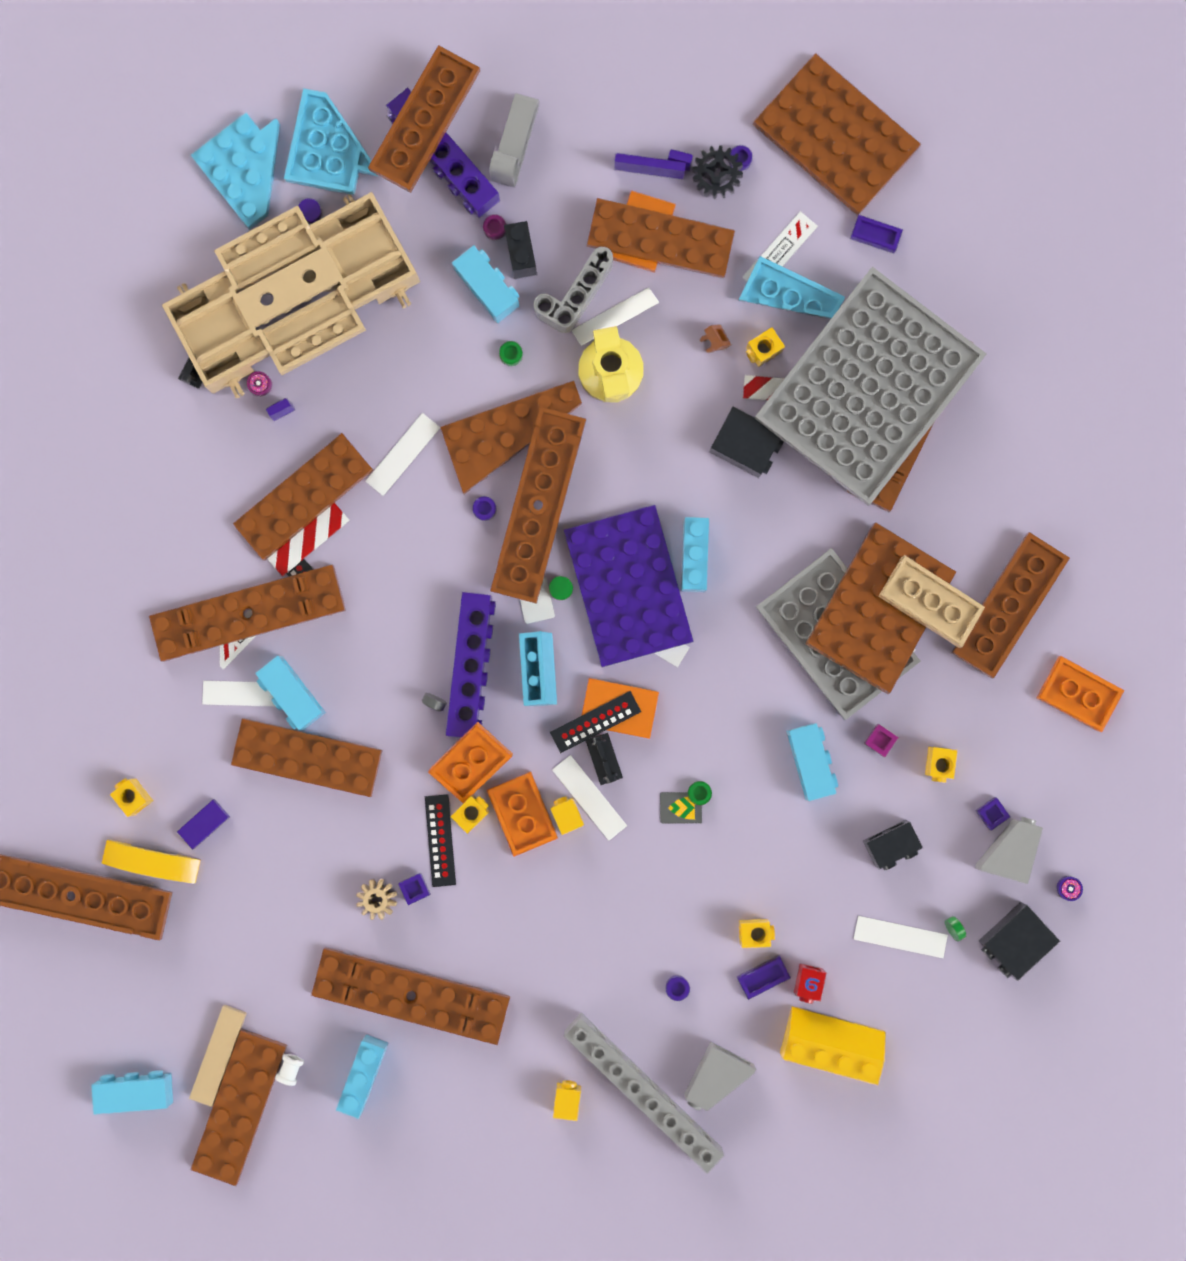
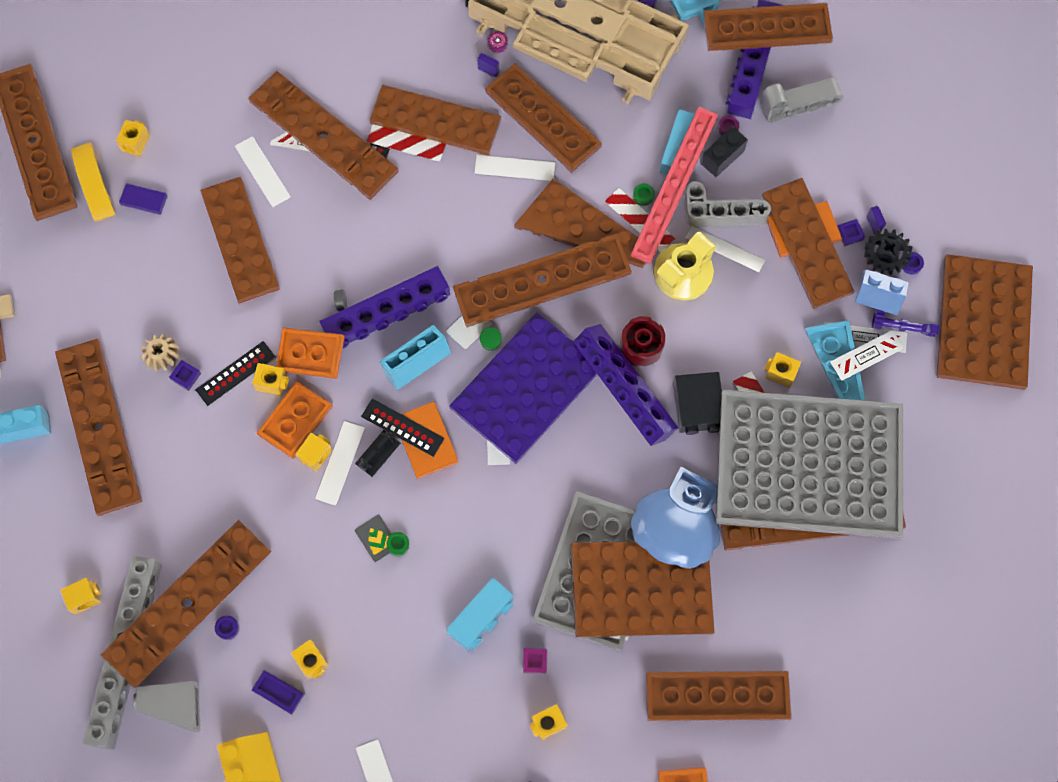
camera: 50 degrees right, 15 degrees down
(289, 693) = (280, 197): medium azure brick -> none
(370, 394) = (543, 118): none -> dark orange plate
(484, 508) = (513, 247): dark purple tile -> none
(526, 319) = (674, 185): none -> coral tile
(532, 374) = (634, 214): none -> sticker
(643, 1037) = (169, 621): none -> dark orange piece
(649, 166) = (855, 201): dark purple tile -> none
(671, 451) = (654, 340): none -> dark red brick
(674, 190) = (851, 232): none -> dark purple tile
(688, 497) = (625, 384): none -> dark purple brick
(695, 554) = (584, 418): medium azure brick -> none
(717, 337) = (763, 330): dark orange tile -> none
(753, 207) = (881, 292): none -> medium blue slope
(775, 228) = (879, 320): none -> dark purple piece
(801, 263) = (867, 355): none -> white sticker
(809, 983) = (295, 731): red brick -> none
(843, 536) = (679, 521): none -> medium blue animal
(876, 234) = (933, 399): dark purple tile -> none
(892, 845) = (454, 726): black brick -> none
(931, 601) = (674, 624): tan tile -> none

